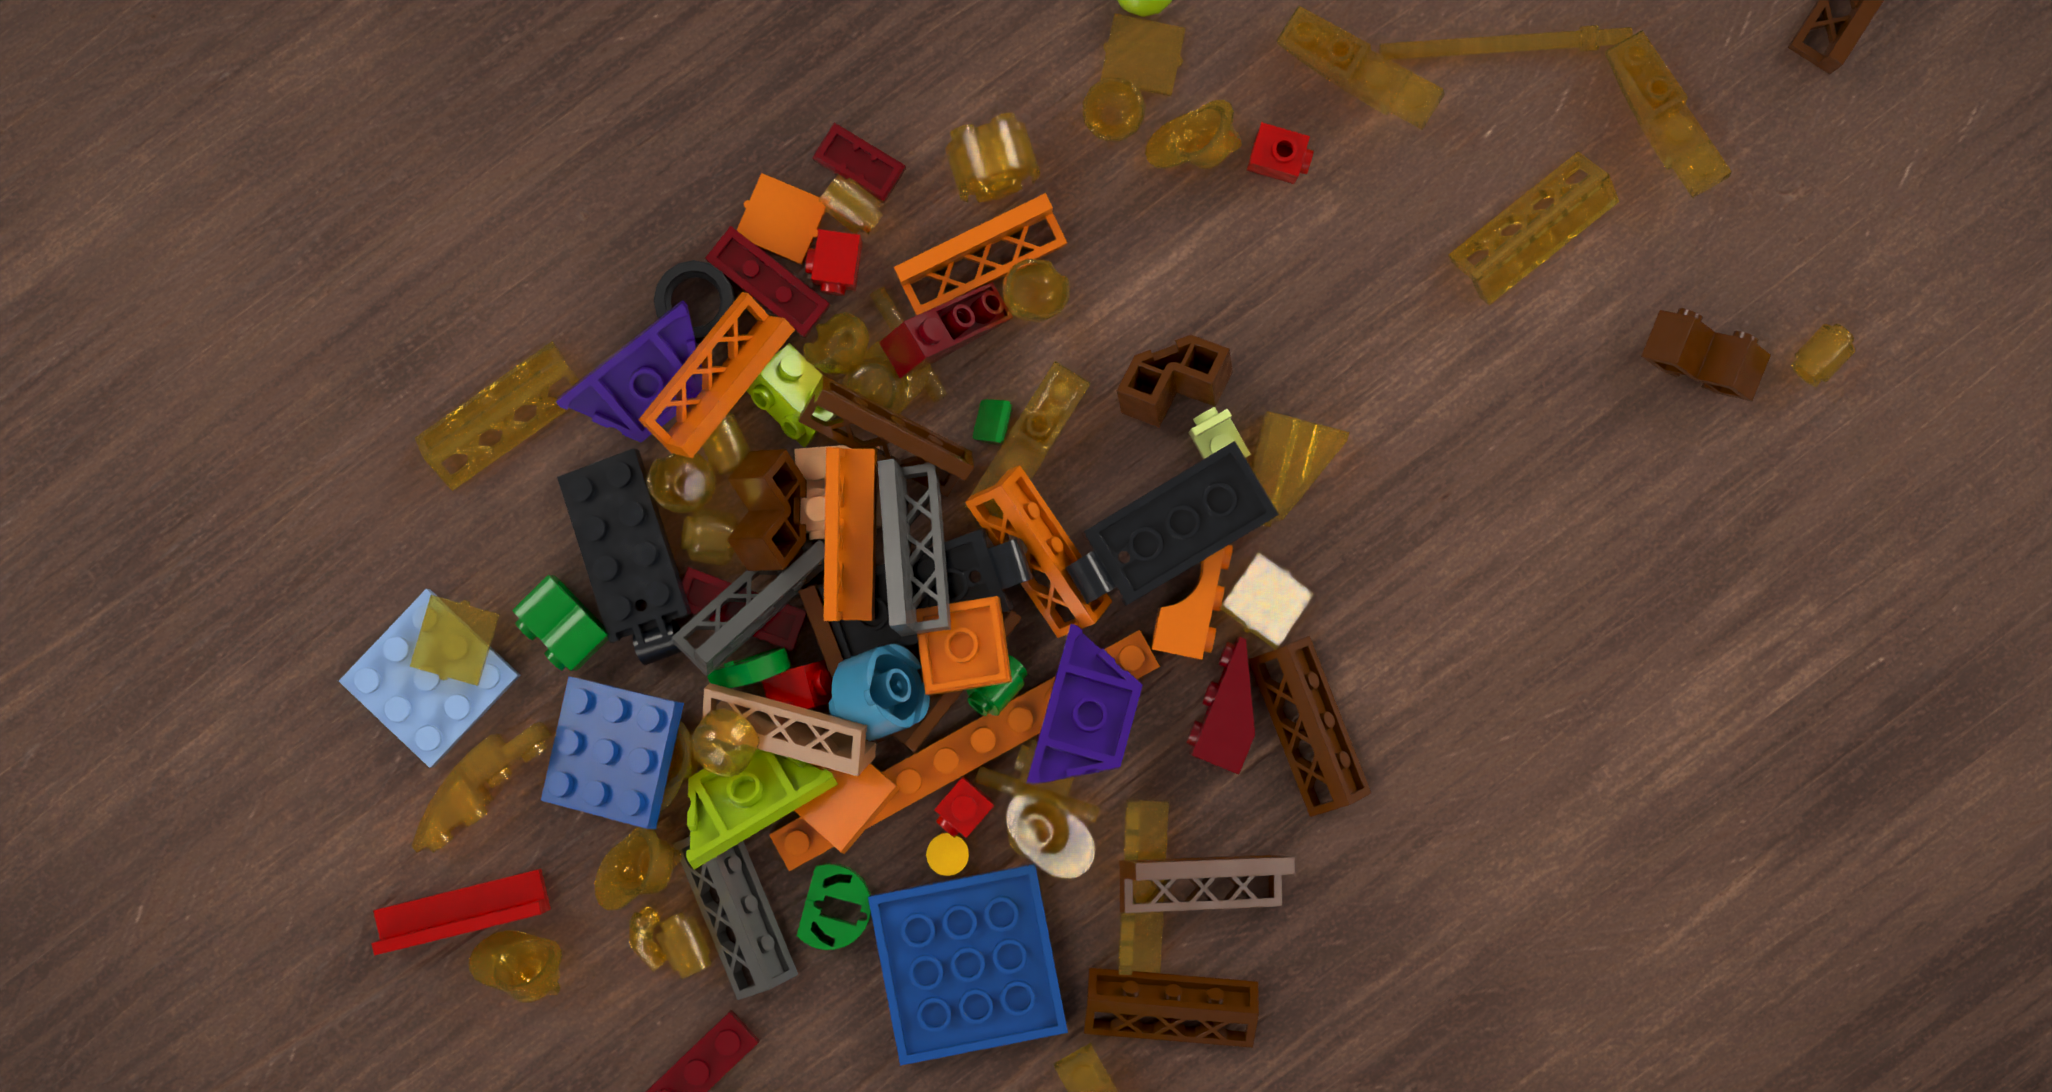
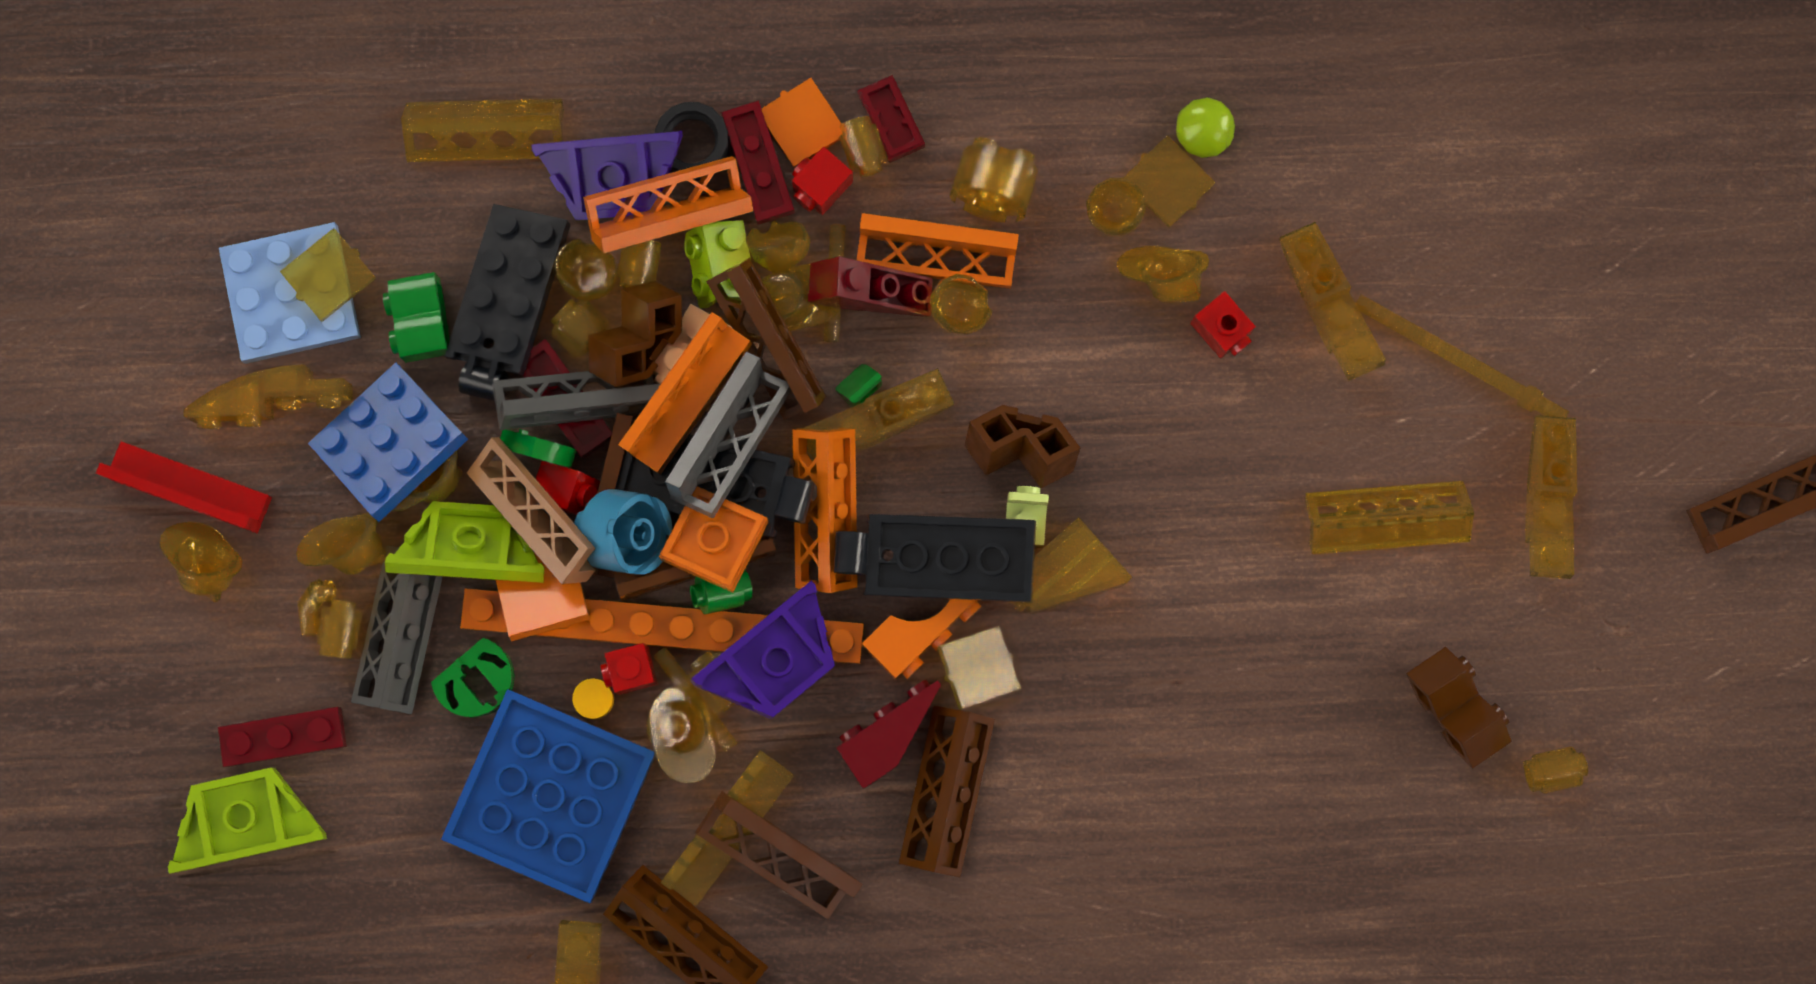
camera: 30 degrees right, 5 degrees down
(724, 743) = (477, 490): clear yellow hair -> none

